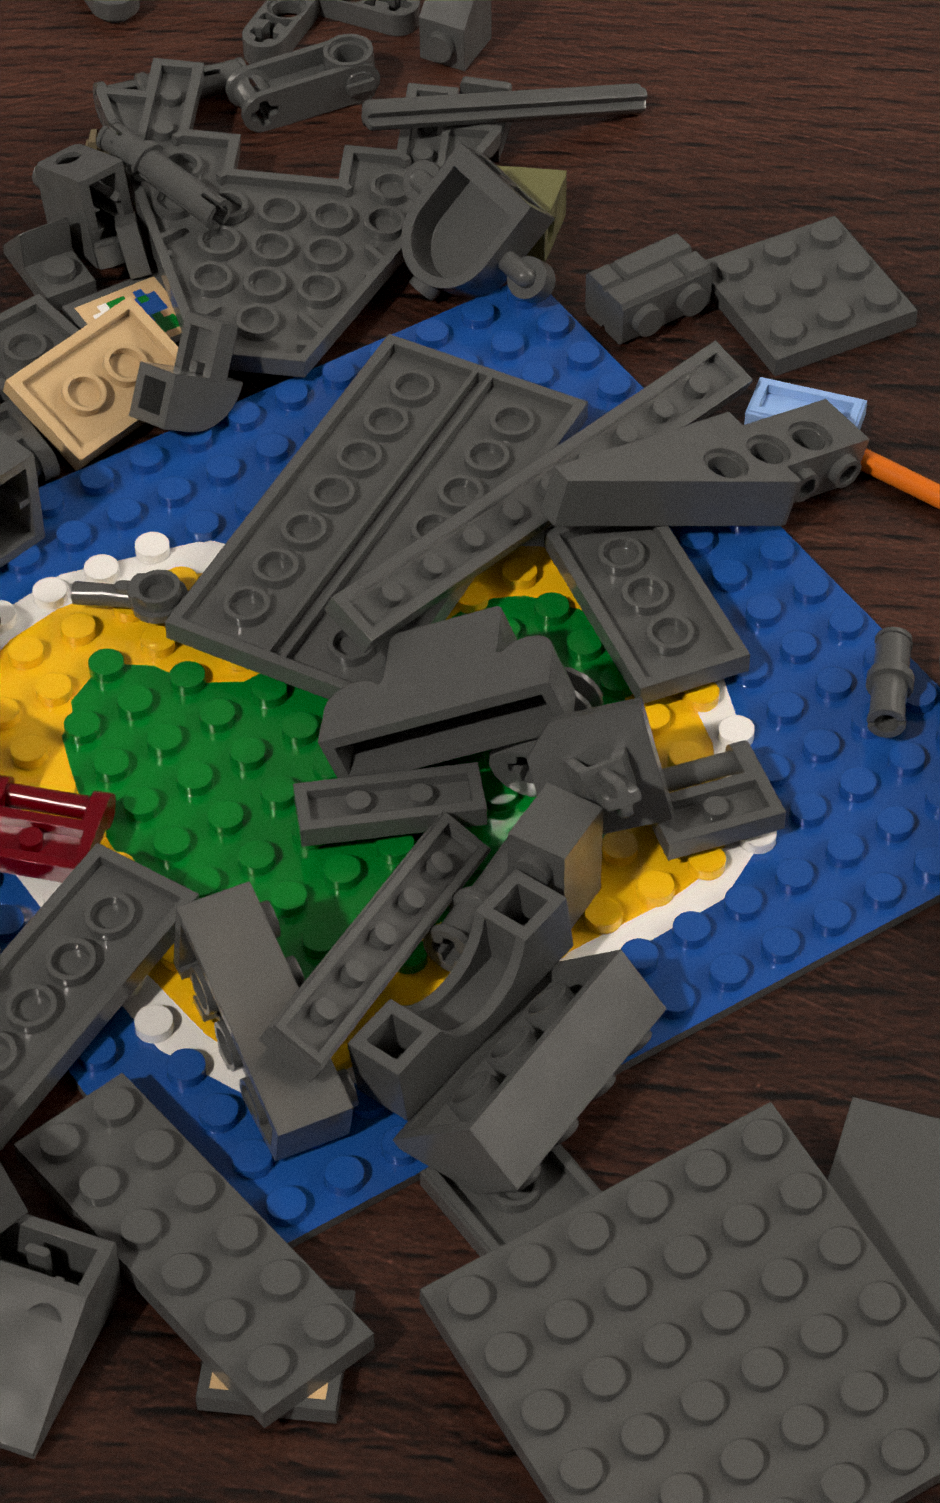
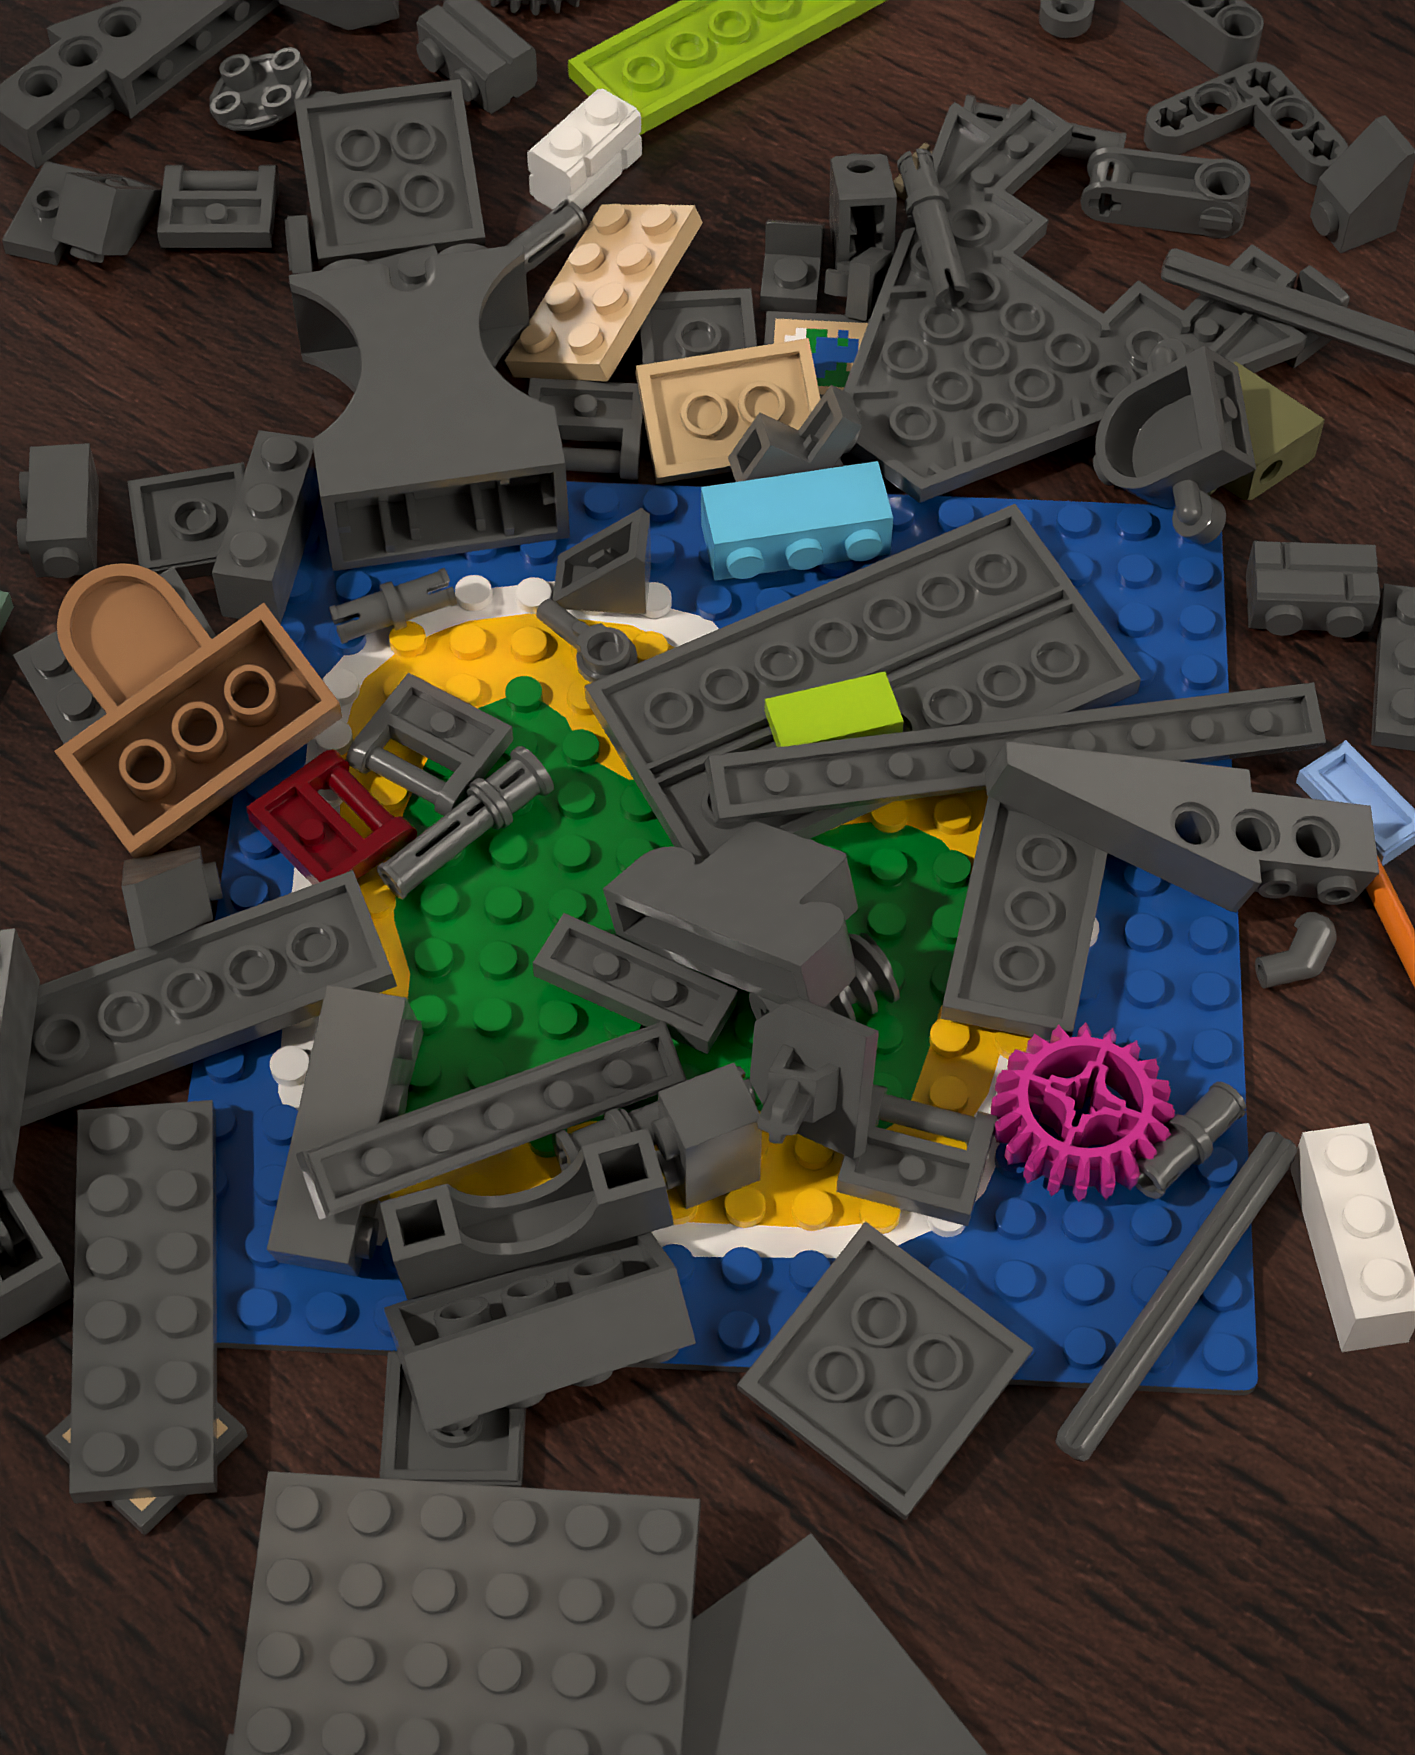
camera: 35 degrees right, 10 degrees up
(71, 716) = (437, 728): none -> dark grey plate
(109, 531) = (608, 569): none -> dark grey slope
(164, 725) = (487, 806): none -> dark grey pin
(227, 429) = (796, 521): none -> medium azure brick
(383, 533) = (835, 712): none -> lime tile
(802, 702) = (1039, 1086): none -> dark pink gear
(813, 953) = (884, 1370): none -> dark grey plate
(856, 526) = (1306, 955): none -> dark grey arm

